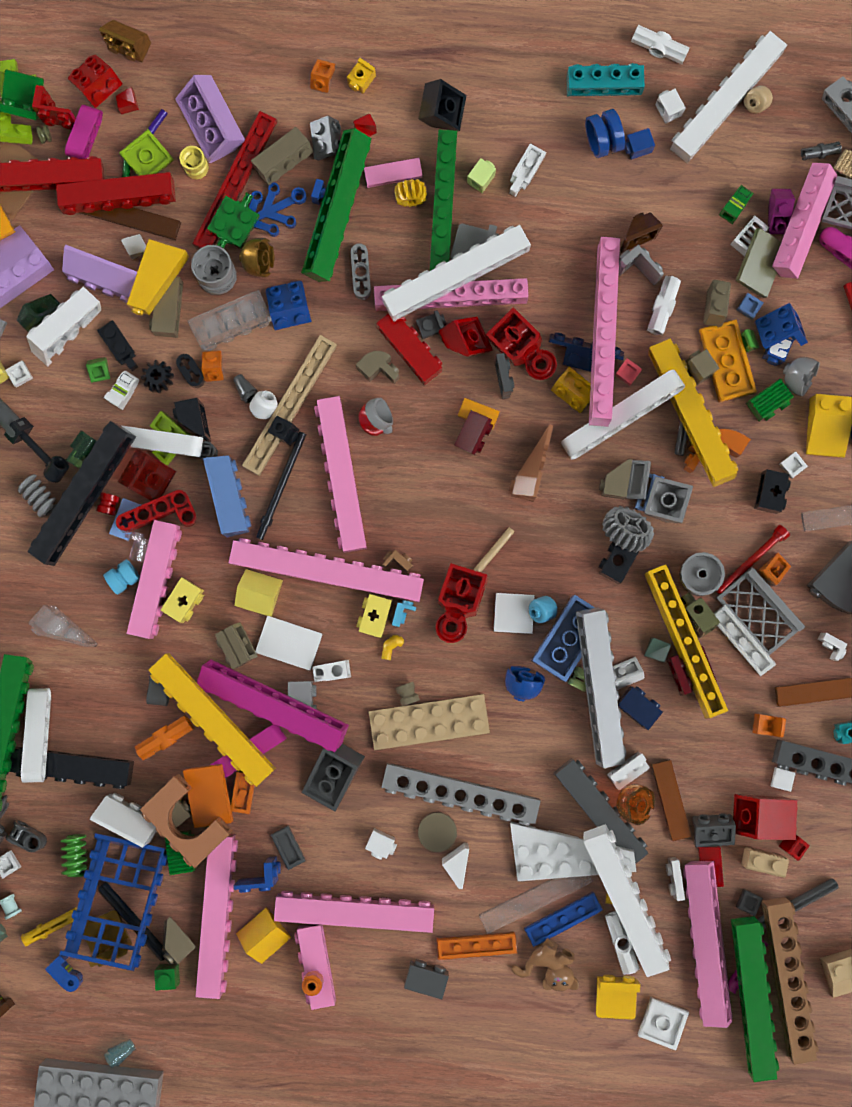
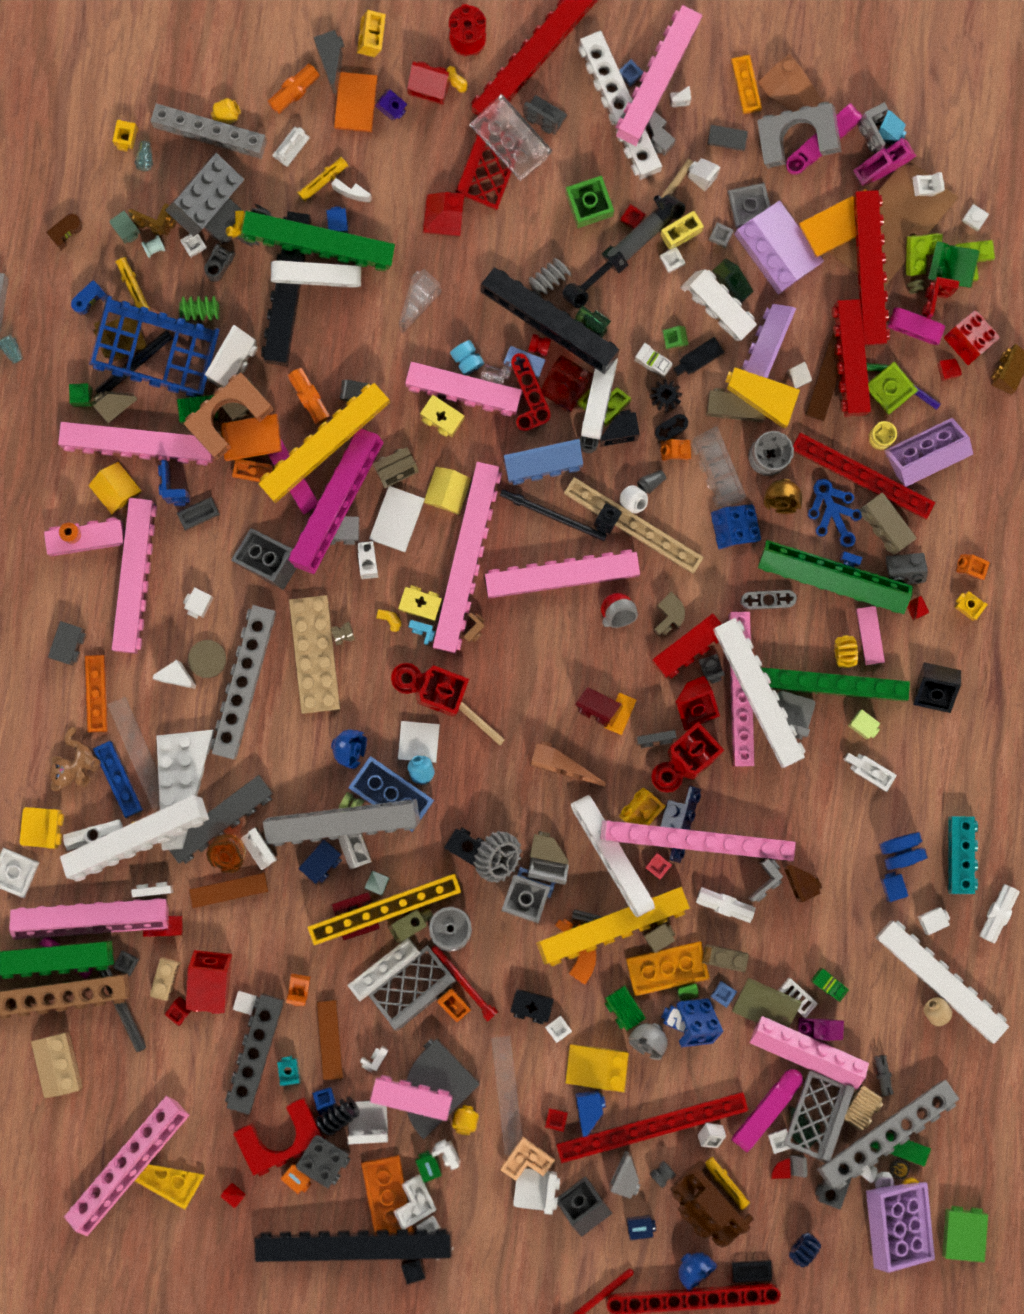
camera: 85 degrees right, 0 degrees up
(233, 221) = (819, 473): green plate -> none
(714, 830) = (197, 930): dark grey bracket -> none

